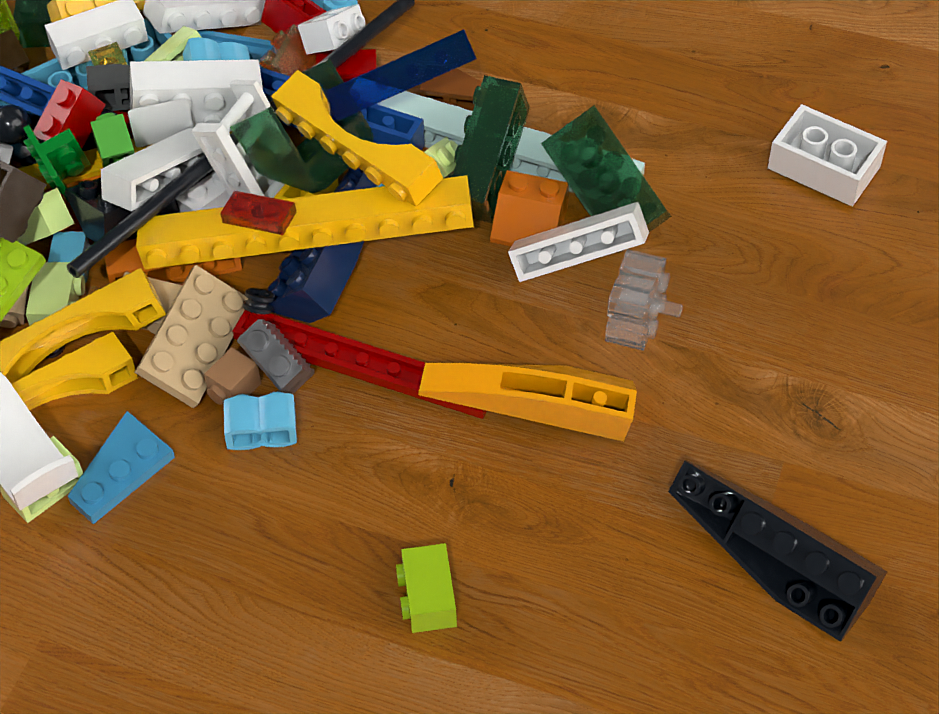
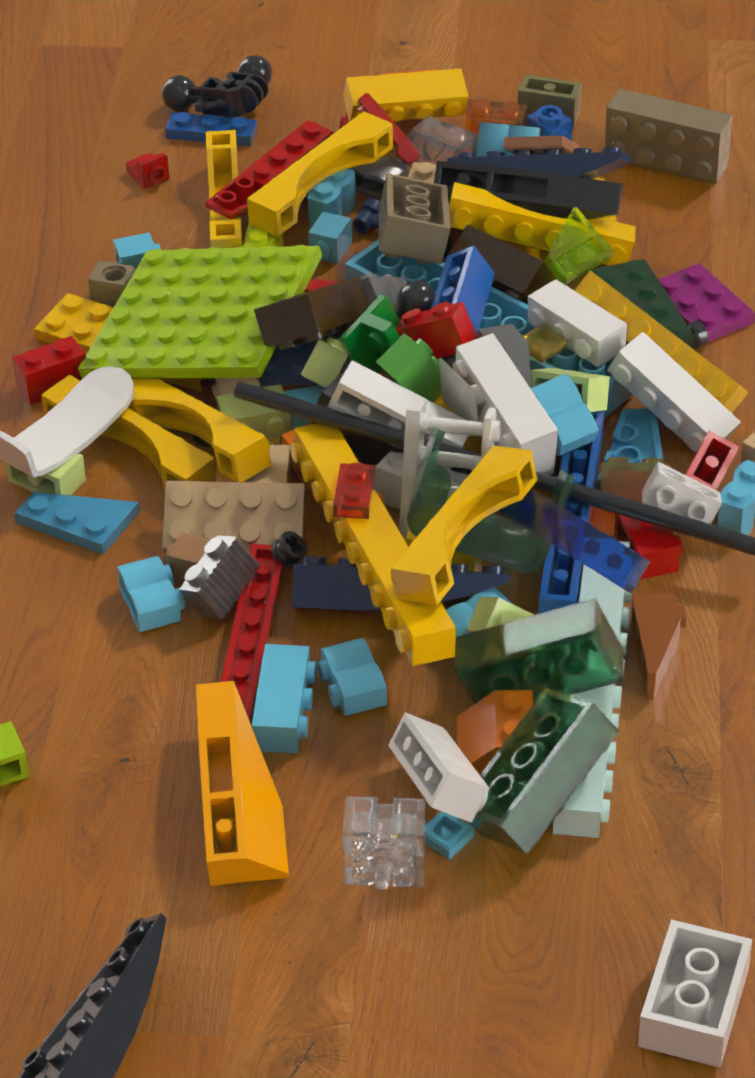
camera: 75 degrees right, 10 degrees down
(426, 291) = (352, 677): none -> medium azure brick
(432, 339) = (283, 698): none -> medium azure brick
(608, 270) = (447, 834): none -> medium azure tile

